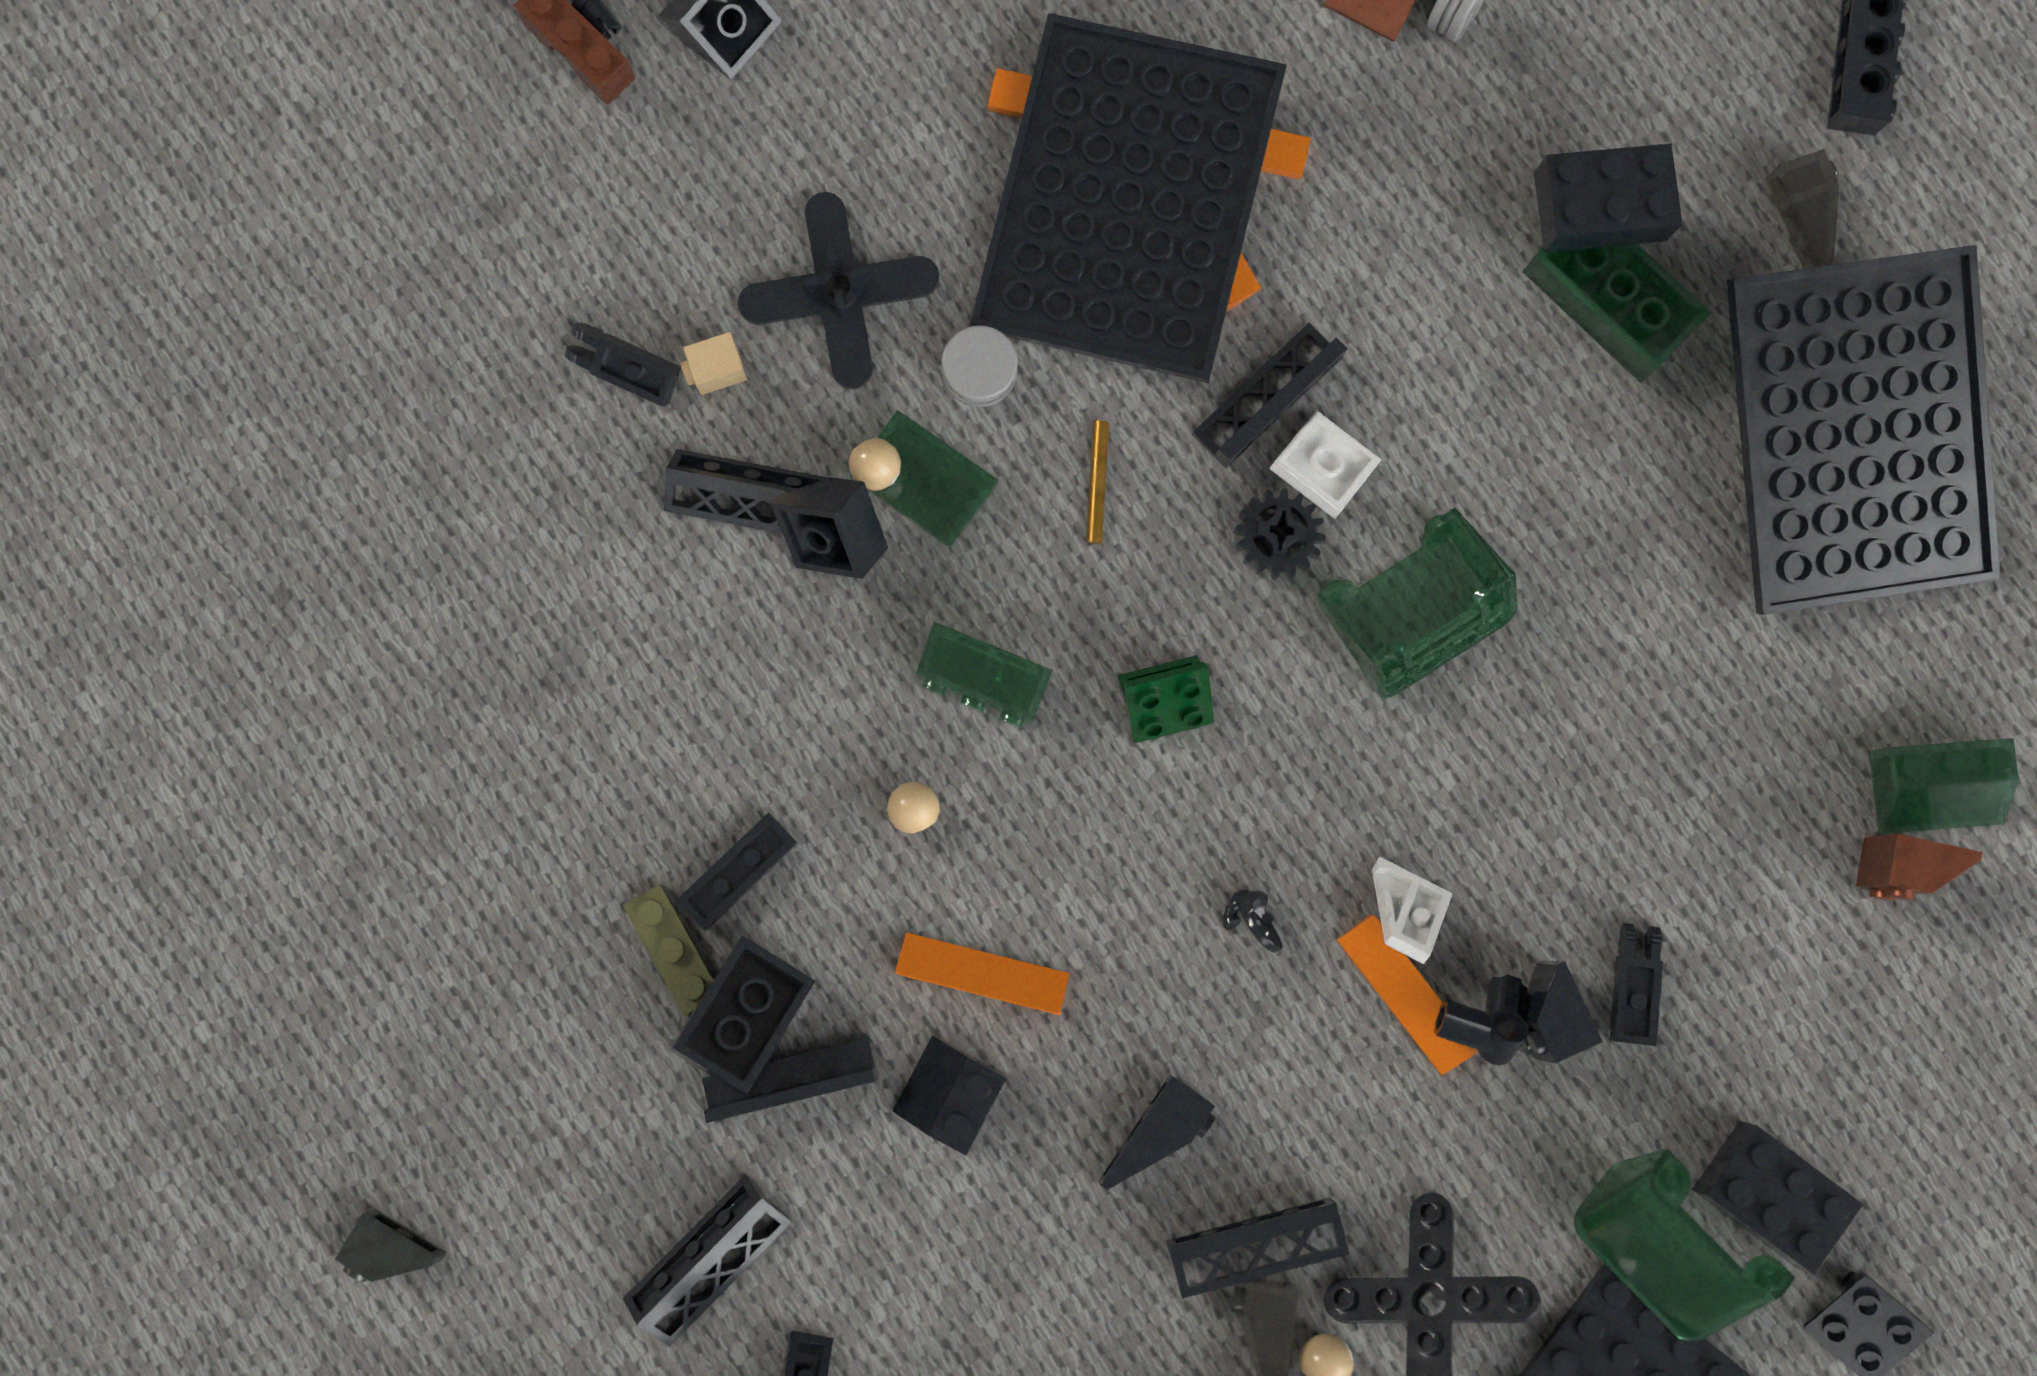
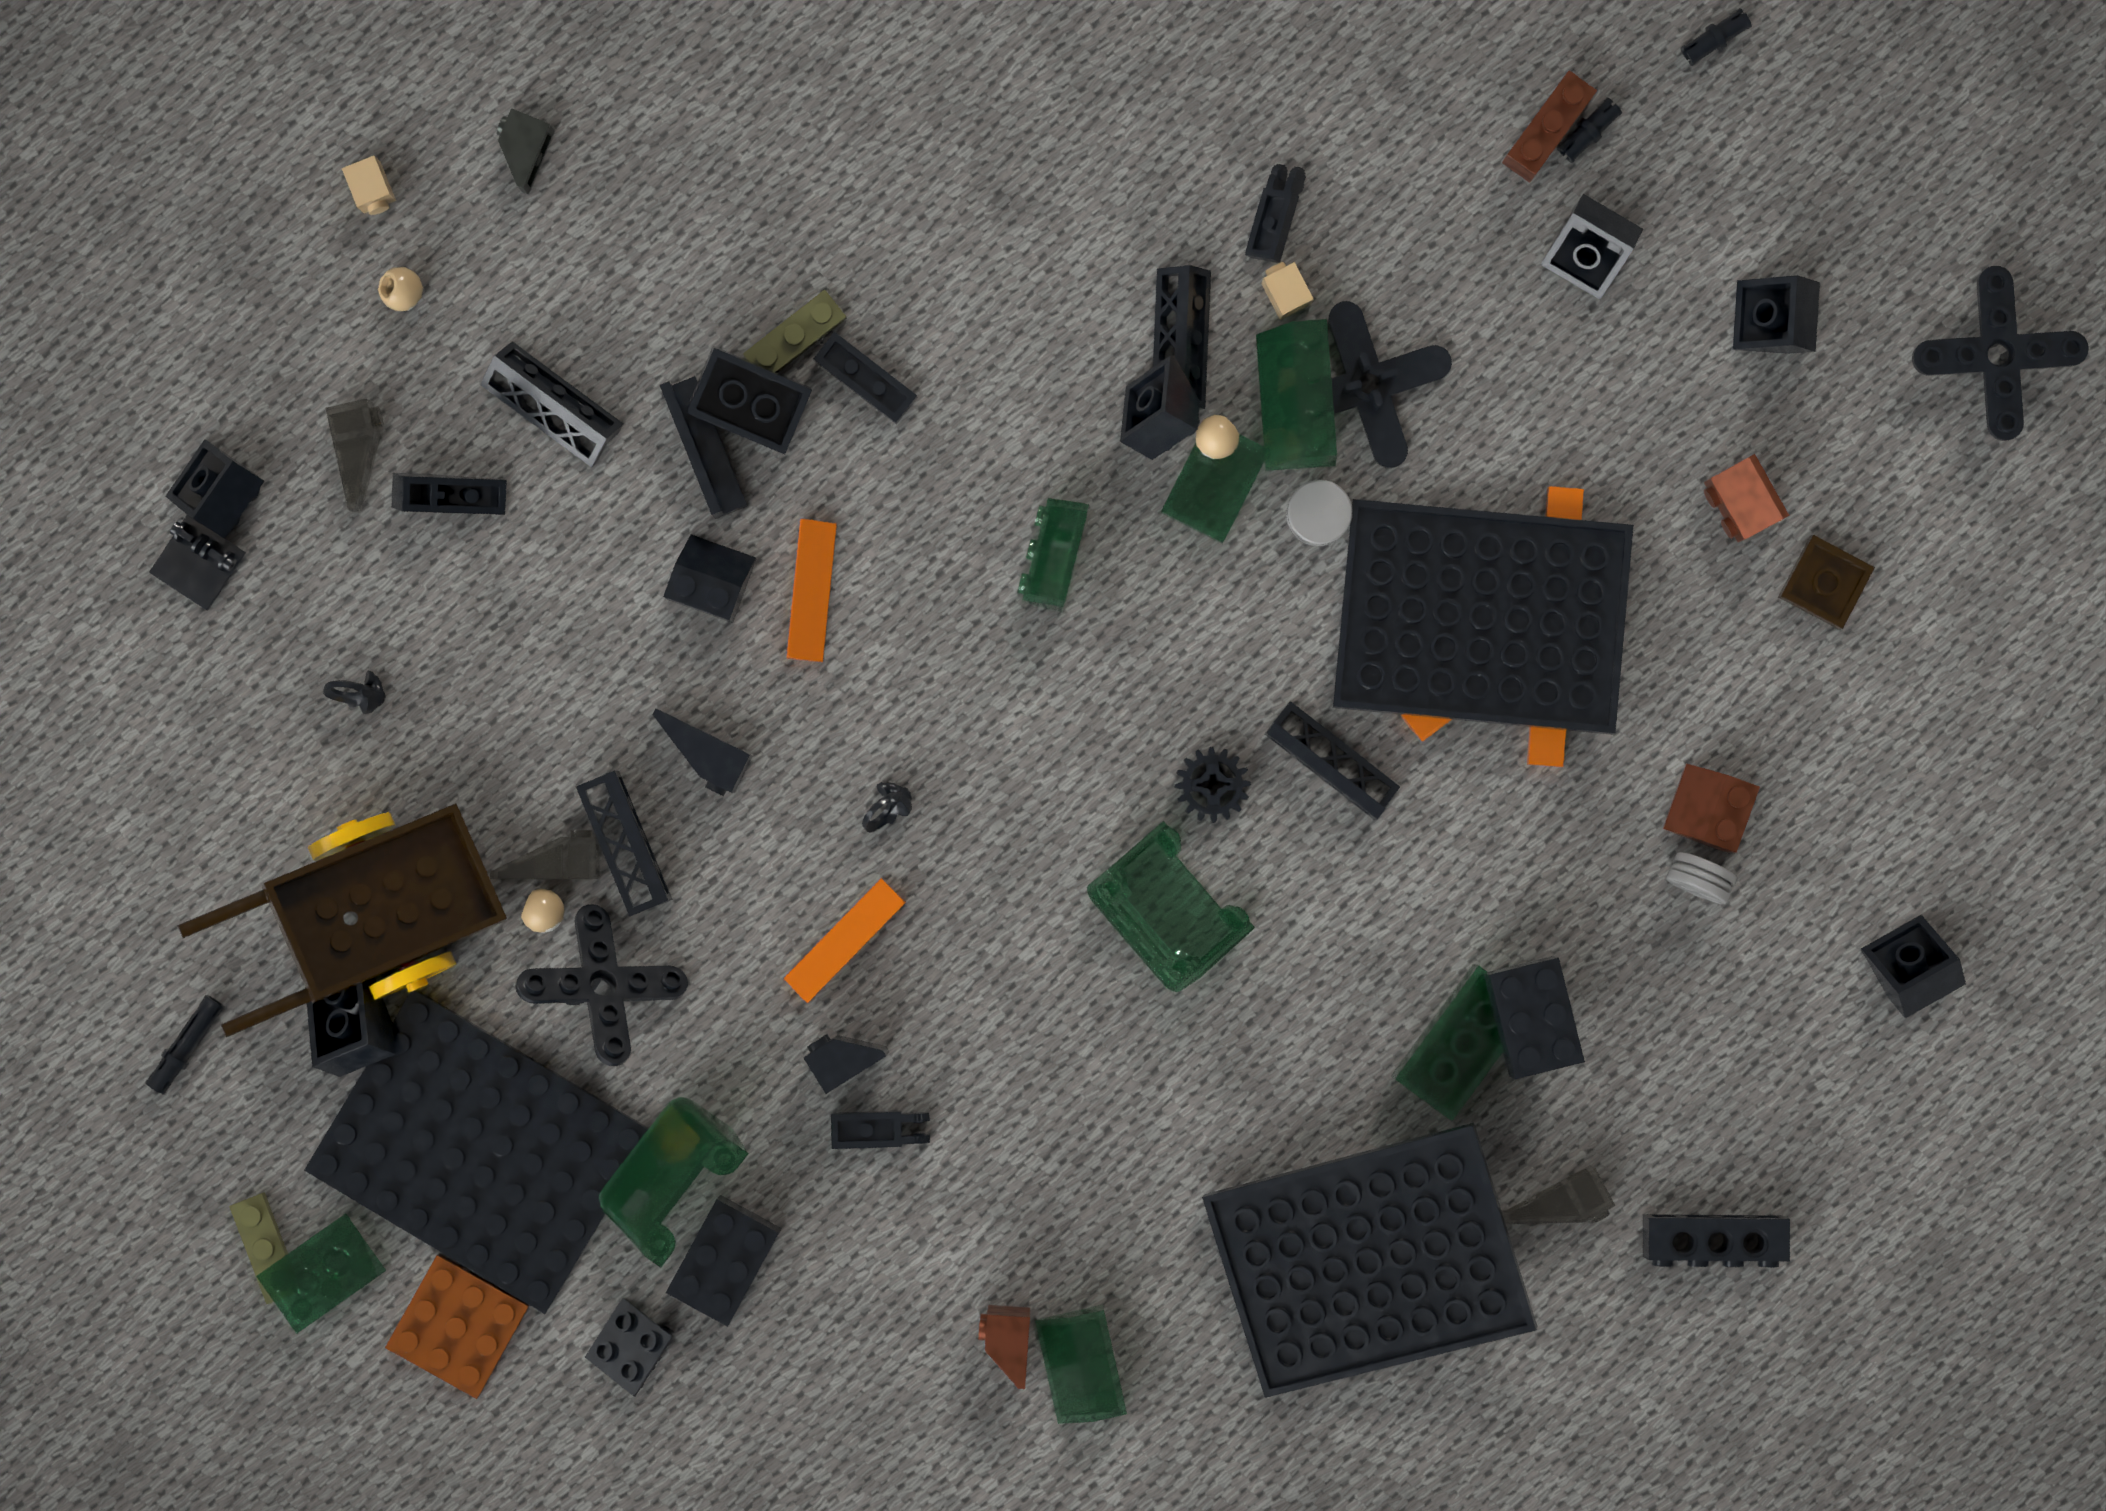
camera: 80 degrees right, 5 degrees up
(840, 367) = (1296, 396): none -> clear green slope
(913, 807) = (938, 513): tan piece -> none
(1097, 482) = (1235, 627): pearl gold bar -> none
(1167, 698) = (1059, 709): dark green bracket -> none
(1325, 464) = (1277, 815): white plate -> none
(1409, 909) = (913, 931): white wing -> none
(1496, 1031) = (823, 998): black piece -> none

